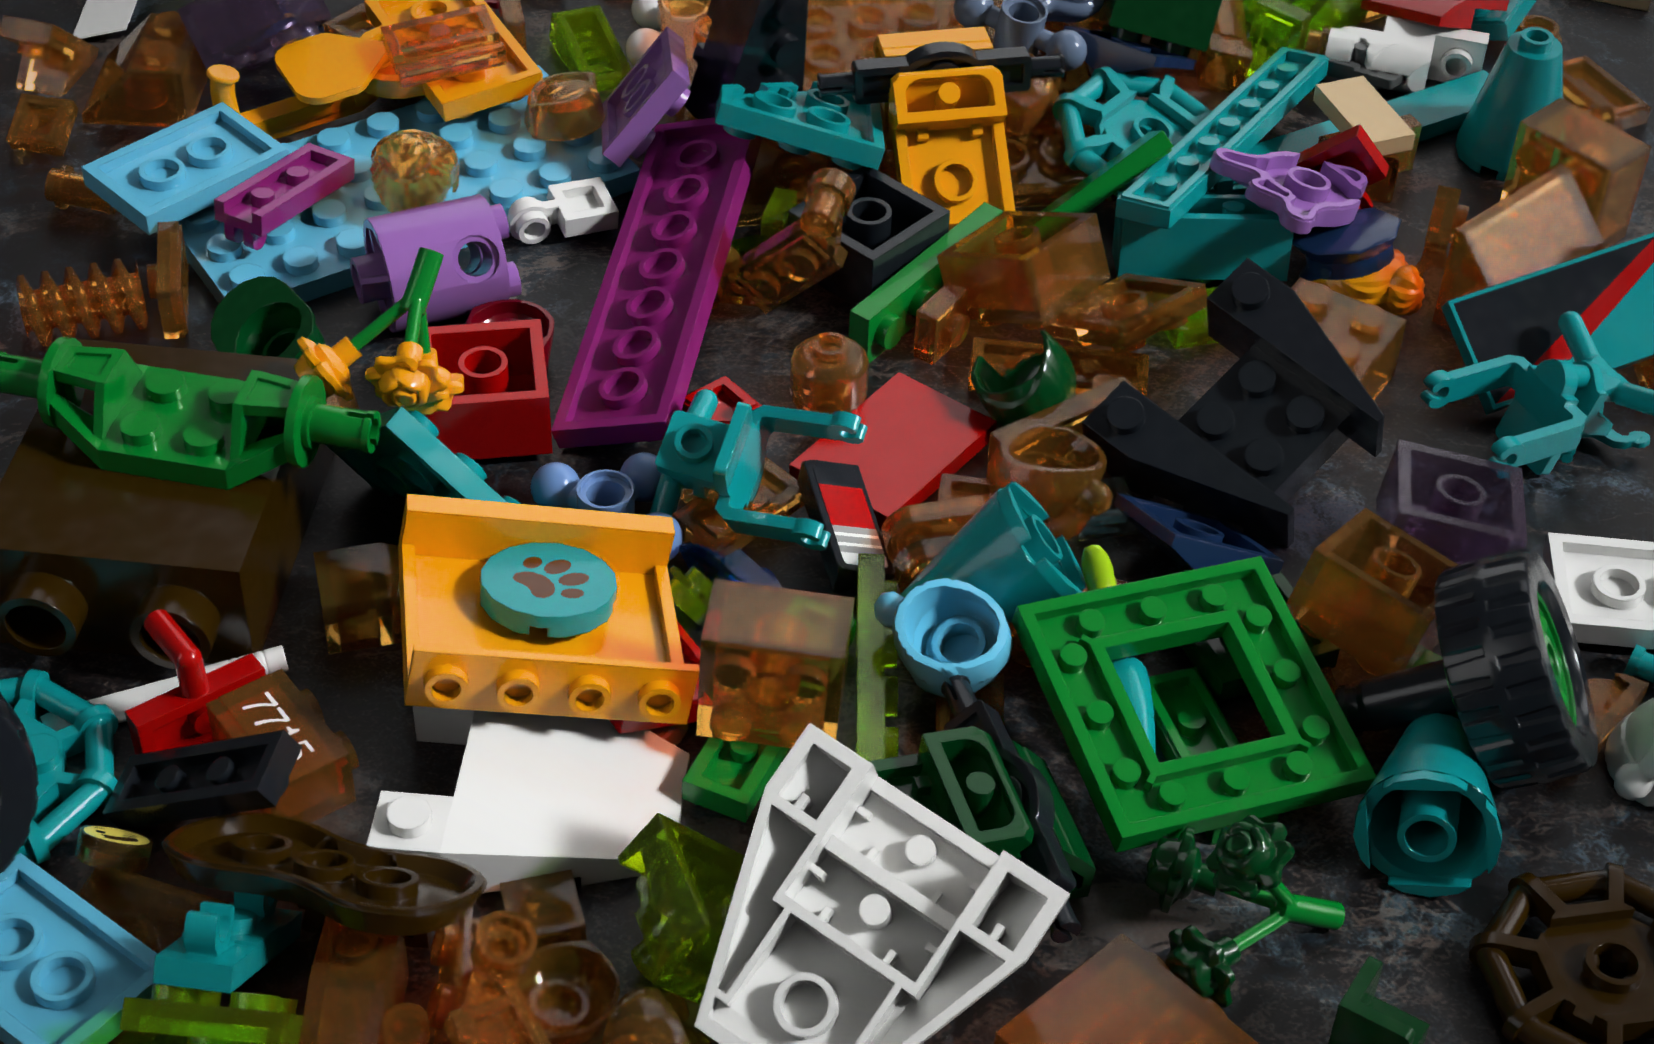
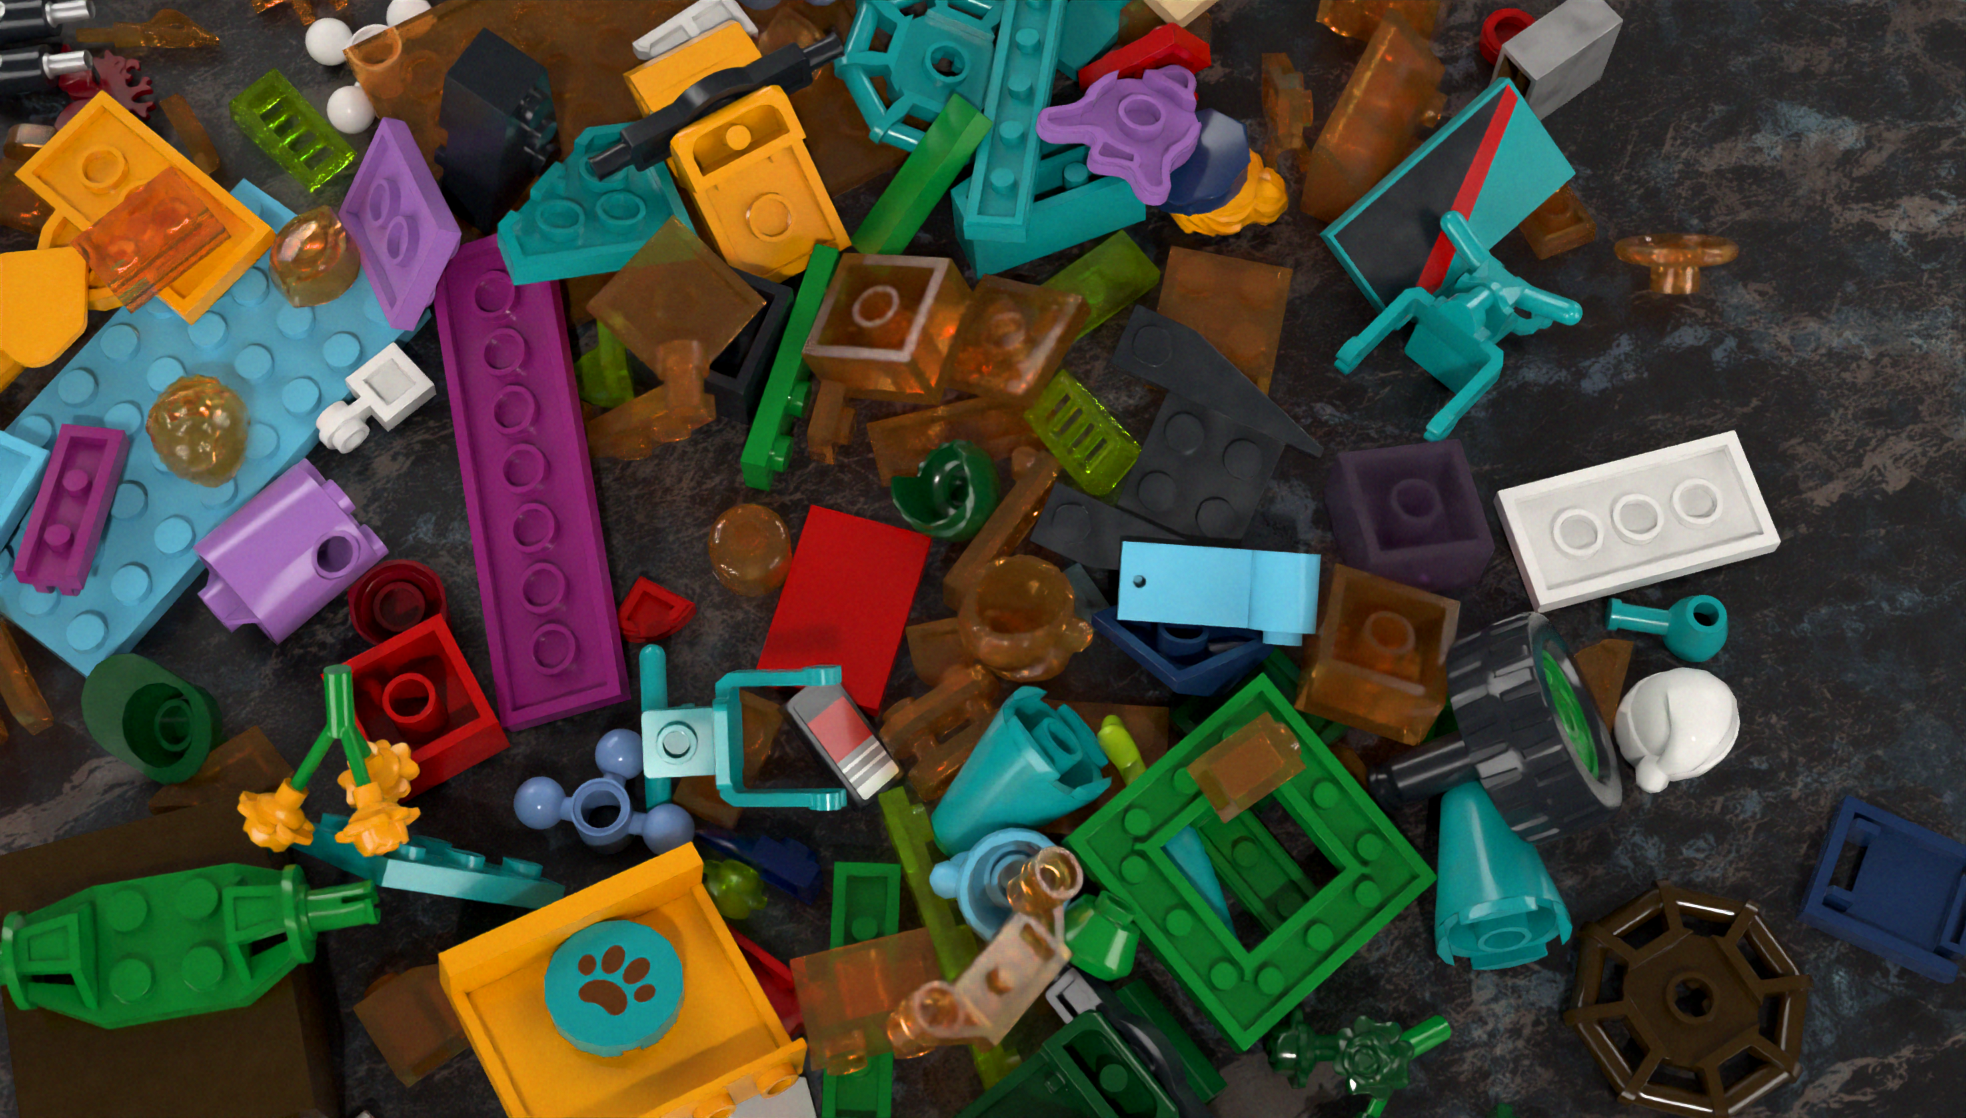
camera: 20 degrees left, 25 degrees up
(865, 156) = (675, 293): none -> clear orange tile
(902, 657) = (1007, 969): none -> clear orange plate
(1016, 687) = (1101, 935): none -> green cone
(1166, 374) = (1109, 462): none -> clear neon green slope
(1214, 600) = (1247, 766): none -> clear orange brick
(1248, 500) = (1221, 588): none -> medium azure door

